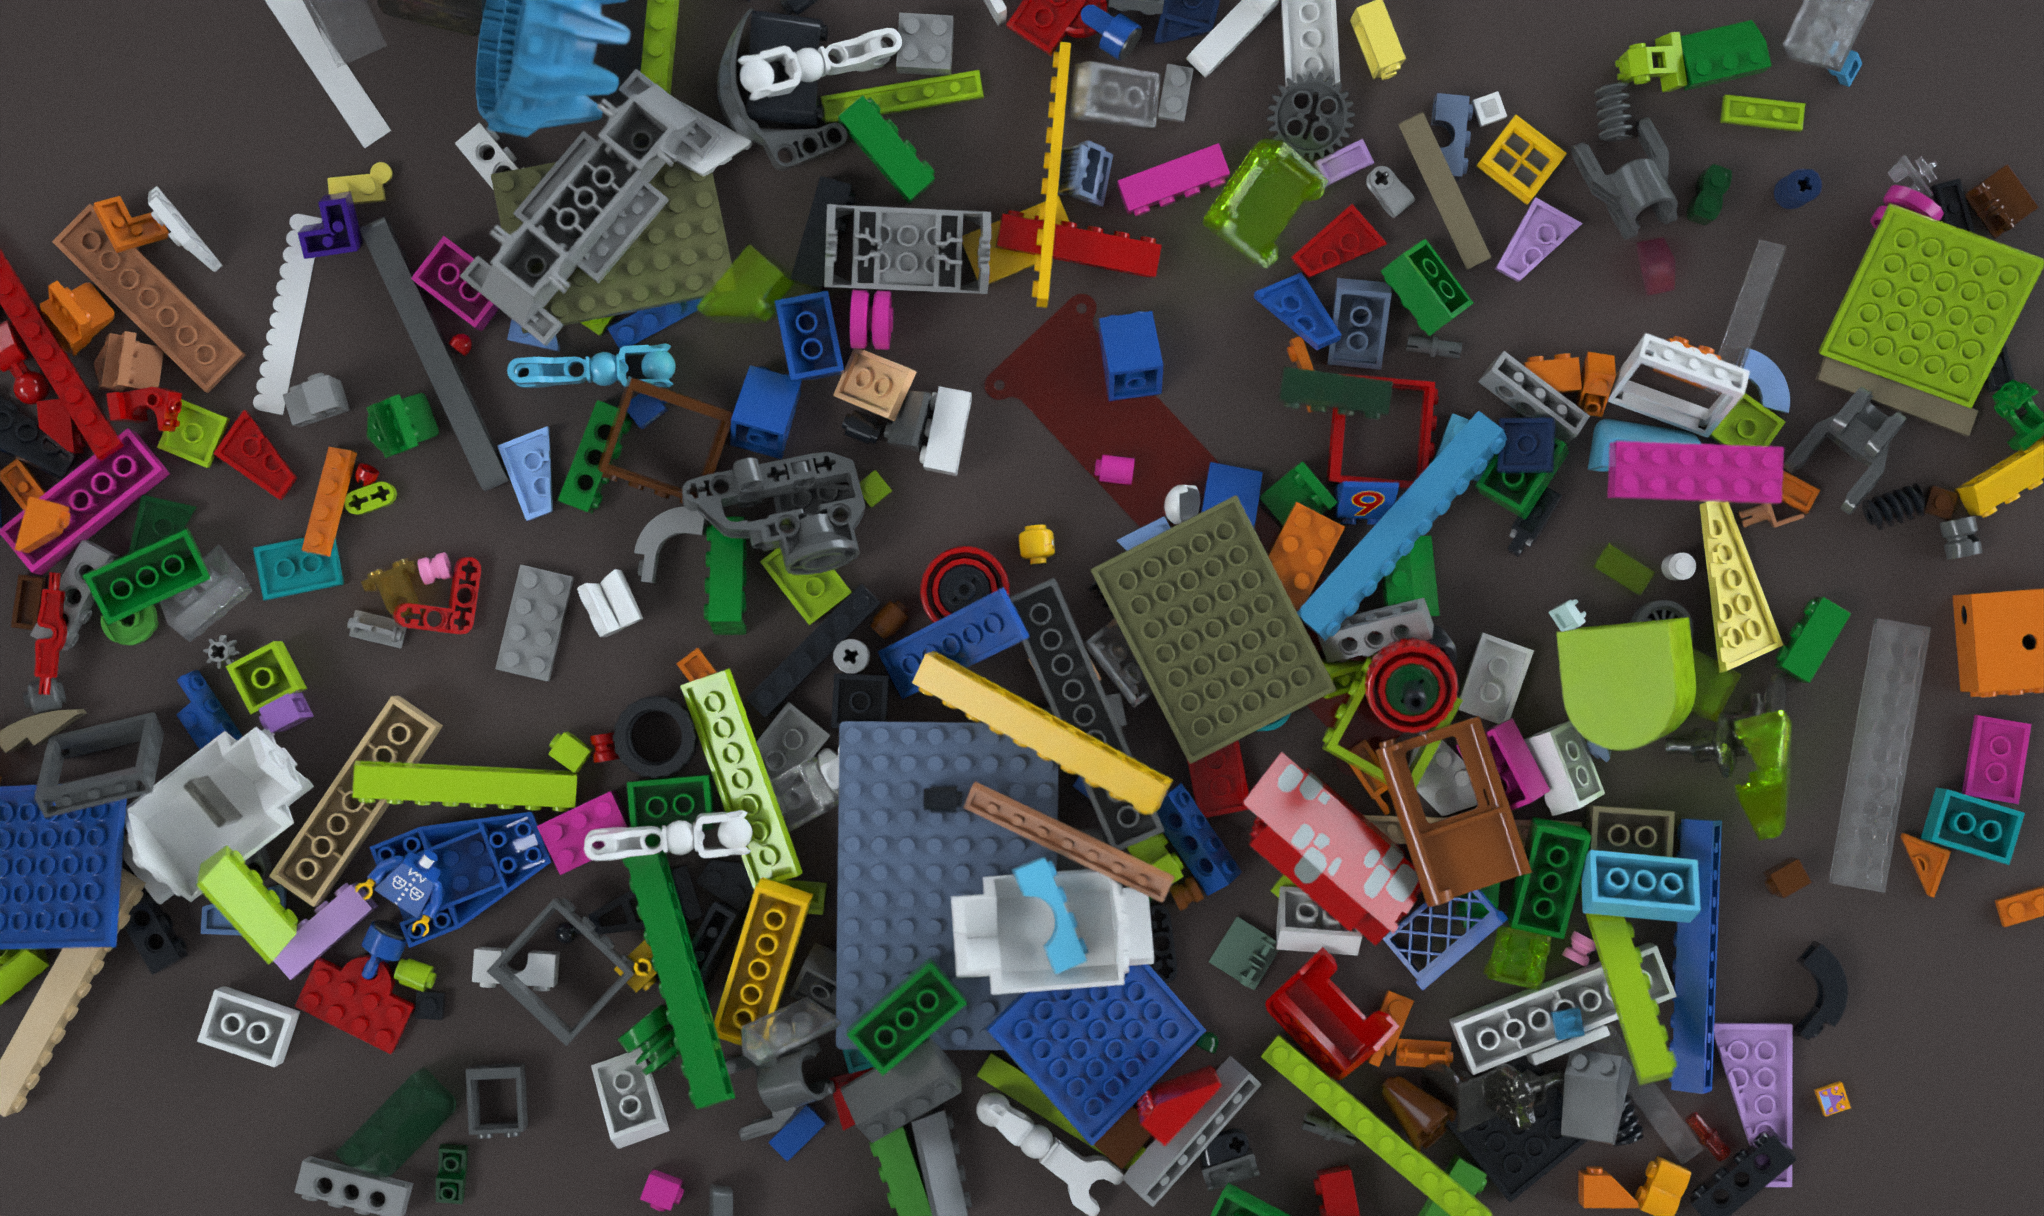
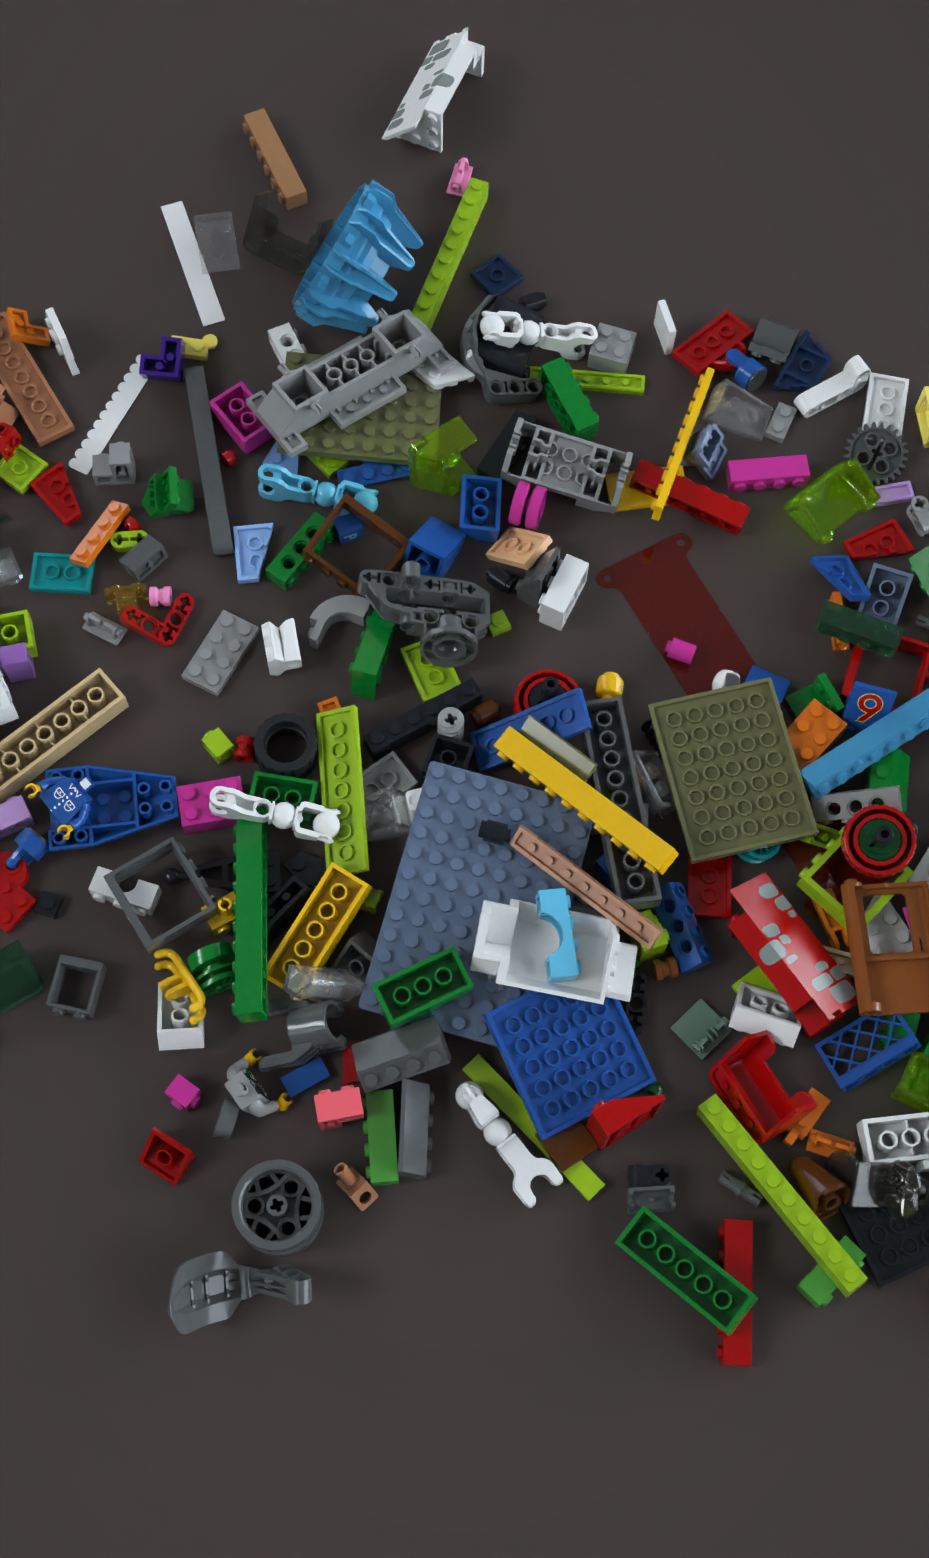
camera: 10 degrees right, 20 degrees down
(396, 520) = (144, 558): none -> dark grey hinge
(415, 974) = (45, 877): lime brick -> none
(451, 1173) = (20, 1039): dark green slope -> none
(464, 785) = (131, 741): lime brick -> none
(597, 1037) = (181, 983): none -> yellow piece
(735, 1170) = (248, 1090): none -> light grey torso
(845, 1166) = (338, 1107): none -> coral brick
(856, 1060) = (371, 1027): teal plate -> none
(992, 669) = (558, 748): none -> tile
(1131, 355) = (710, 578): blue slope -> none
(1162, 1166) = (627, 1154): light grey brick -> none

